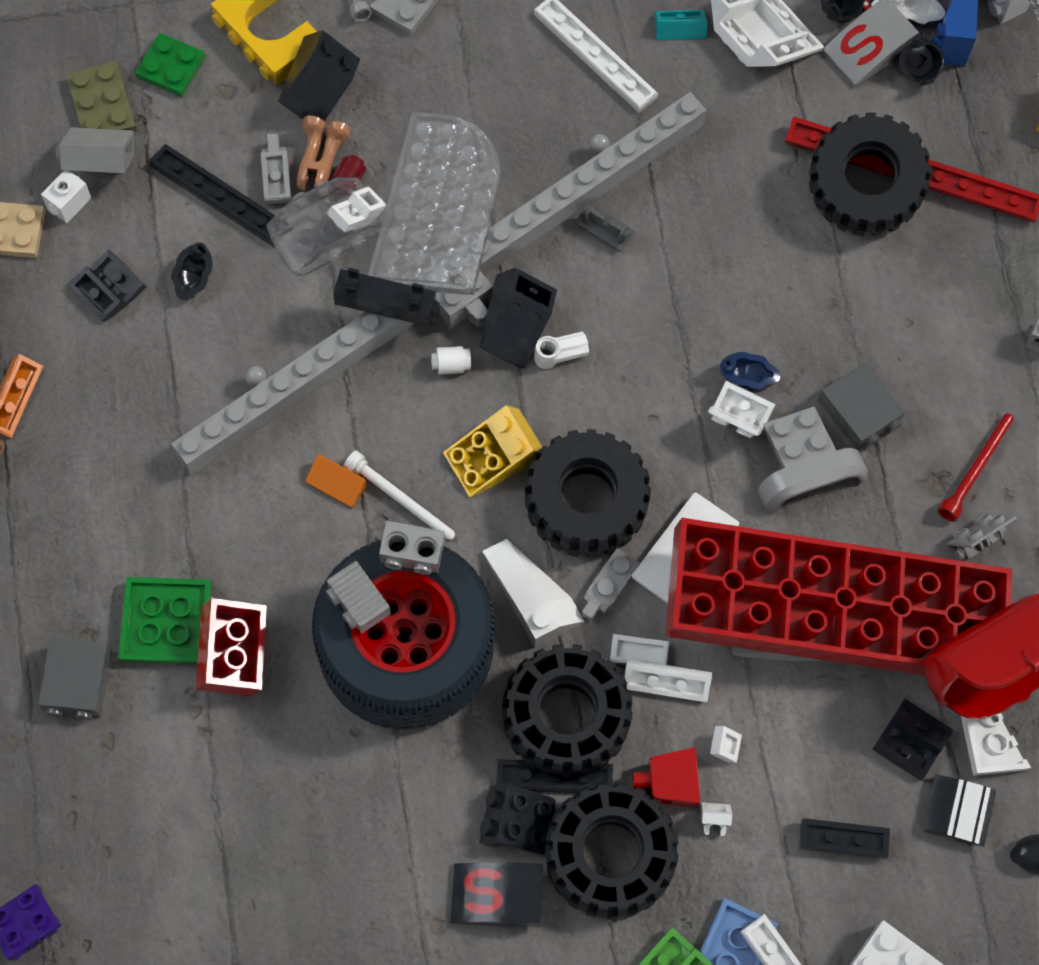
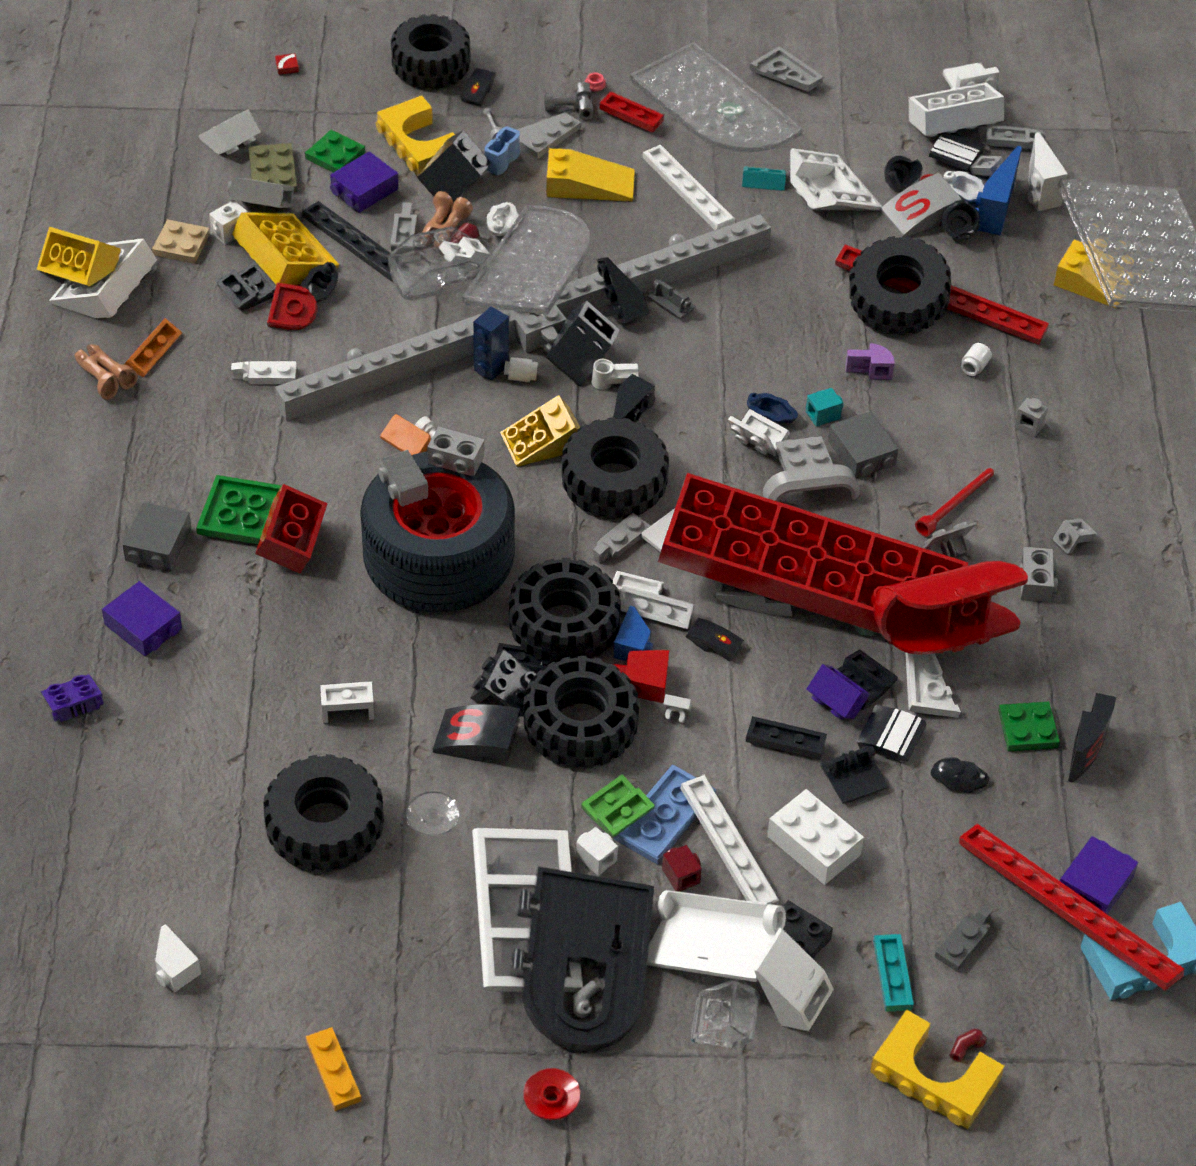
camera: 10 degrees right, 20 degrees down
(40, 58) = (231, 133): none -> white slope
(82, 800) = (142, 618): none -> dark purple brick
(138, 222) = (280, 245): none -> yellow slope
(154, 410) = (264, 371): none -> white hinge
(166, 311) = (292, 307): none -> red tile
(214, 108) = (364, 182): none -> dark purple brick
(342, 879) = (347, 697): none -> white panel
(370, 37) = (503, 150): none -> medium blue brick
(385, 297) = (468, 305): black brick -> none
(388, 138) = (501, 218): none -> white arm
(413, 341) = (491, 343): none -> dark blue brick
(477, 59) = (587, 177): none -> yellow slope
(536, 599) = (552, 534): white wedge -> none
(556, 243) = (625, 297): none -> black slope
(586, 386) = (634, 398): none -> black slope
(650, 730) = (632, 636): none -> blue slope
(725, 744) = (696, 657): white plate -> none
(740, 711) = (708, 634): none -> black slope
(808, 357) = (824, 406): none -> teal brick
(856, 281) = (875, 361): none -> medium lavender brick
(893, 770) = (838, 692): none -> dark purple brick
(927, 875) = (854, 774): none -> black hinge
(968, 260) = (976, 359): none -> white brick

